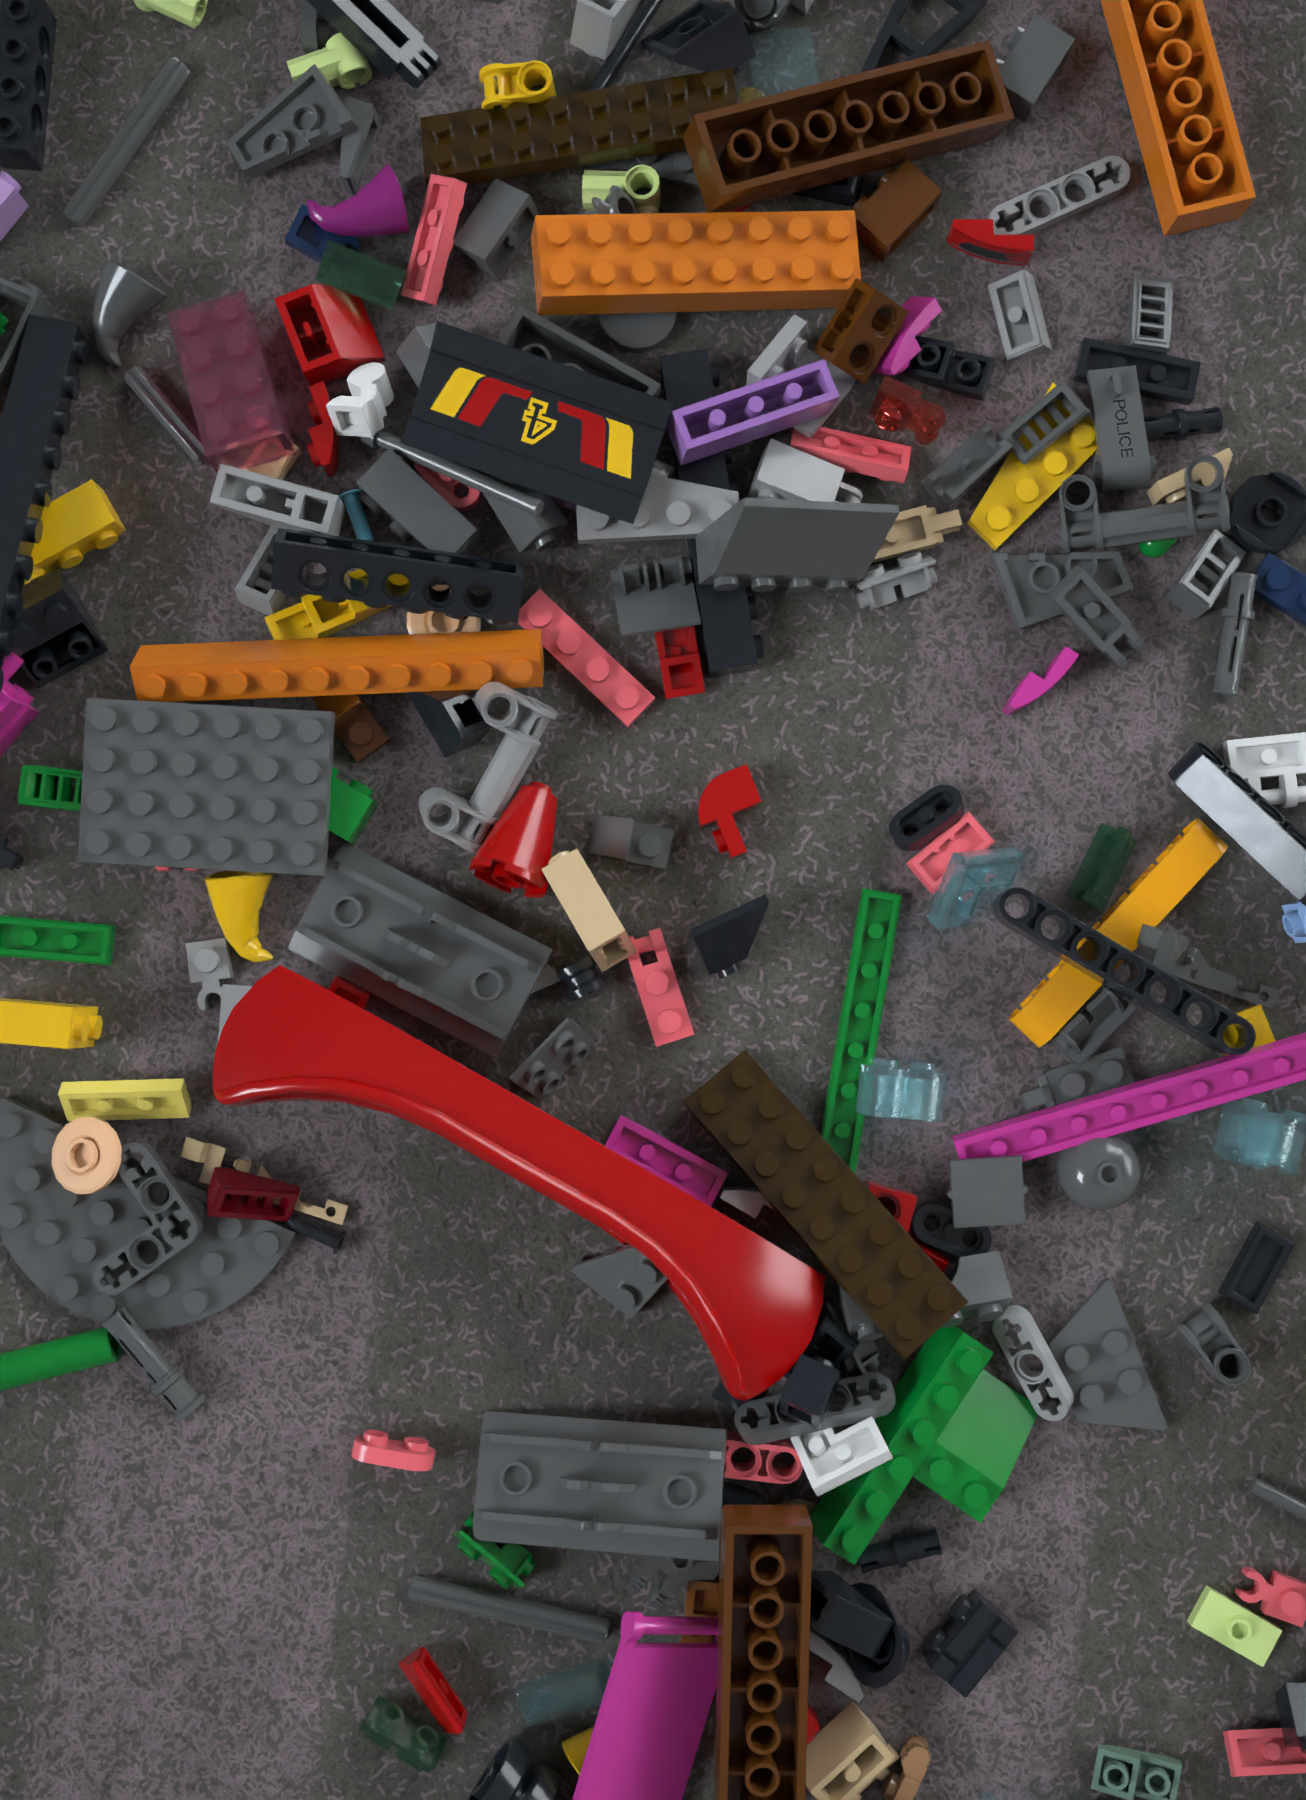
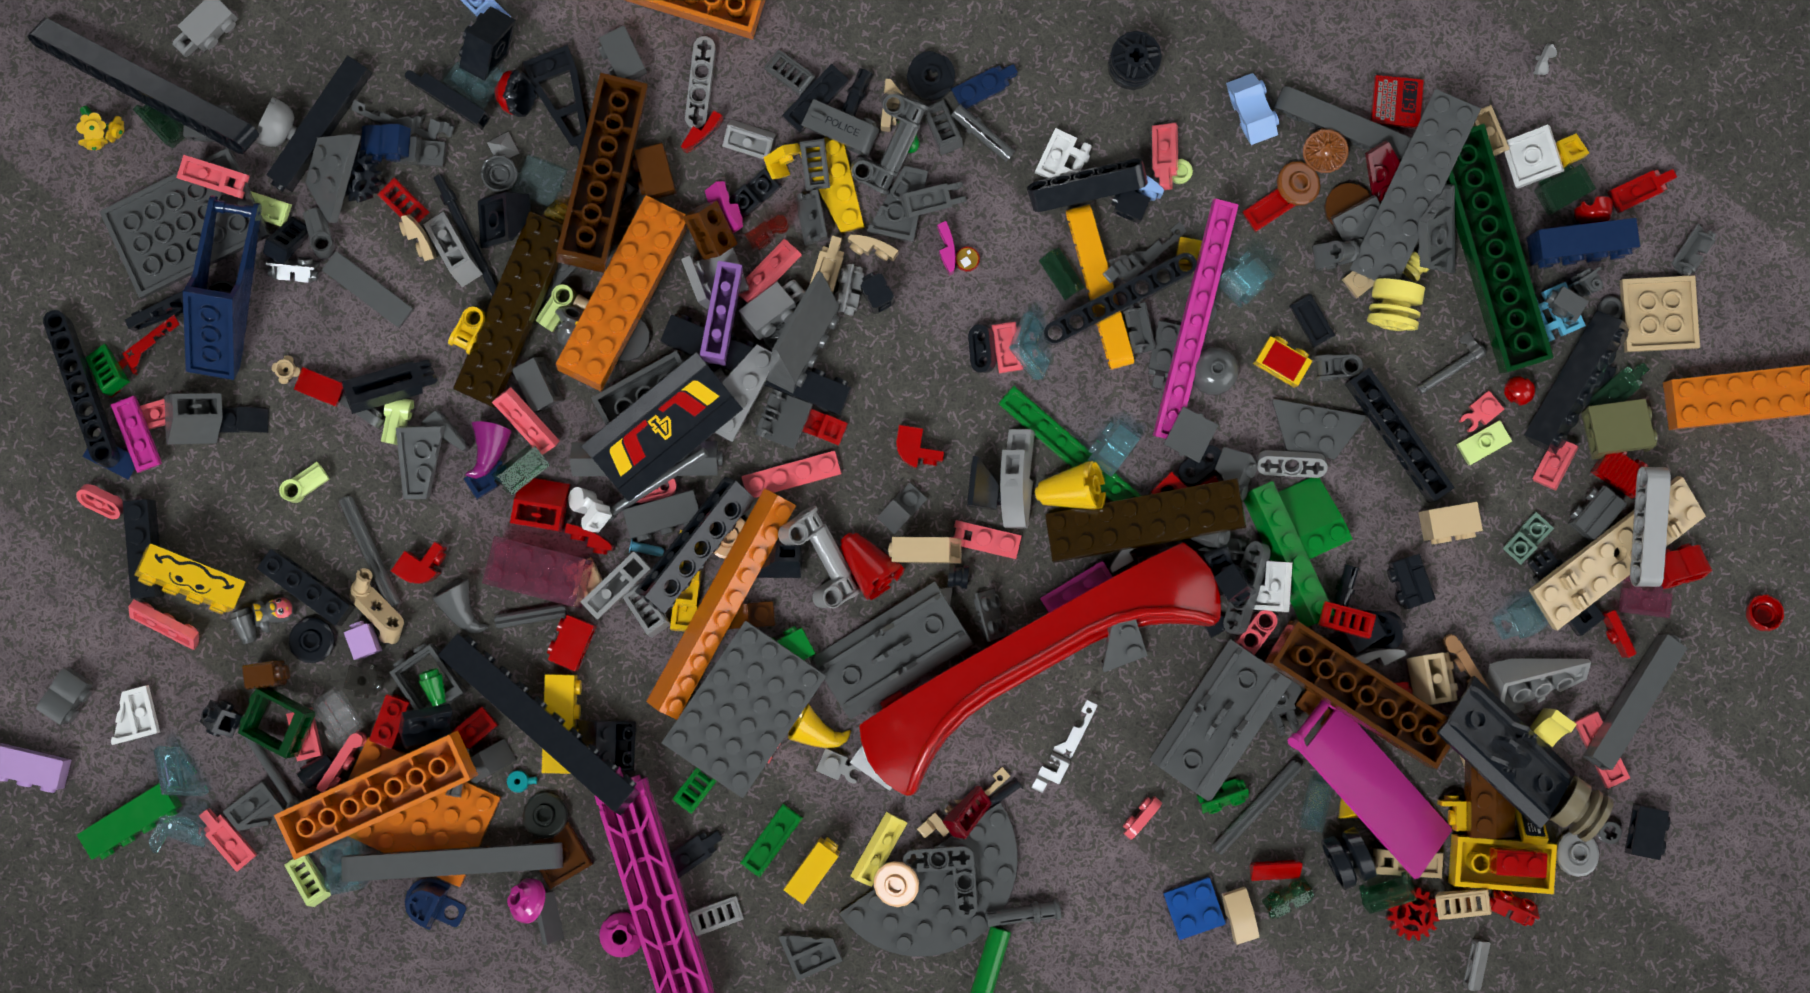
camera: 55 degrees left, 0 degrees up
(57, 170) = (386, 620): none -> tan beam
(137, 216) = (420, 571): none -> red brick
(162, 492) = (571, 642): none -> red brick
(308, 1605) = (1194, 908): none -> blue plate
(337, 1682) = (1241, 915): none -> tan slope
(438, 1284) = (1070, 744): none -> piece
(769, 976) = (1015, 478): none -> light grey slope
(807, 1069) = (1074, 488): none -> yellow cone
(863, 1620) = (1367, 625): none -> red slope
(916, 618) = (877, 292): none -> black brick
(975, 566) = (864, 244): none -> tan slope
(1020, 369) = (777, 160): none -> yellow bracket
(1040, 721) = (967, 259): none -> tile
(1092, 1654) = (1450, 521): none -> tan brick
(1171, 1499) = (1399, 435): none -> black brick
(1174, 1261) = (1283, 361): none -> brick
(1262, 905) = (1130, 205): none -> black brick

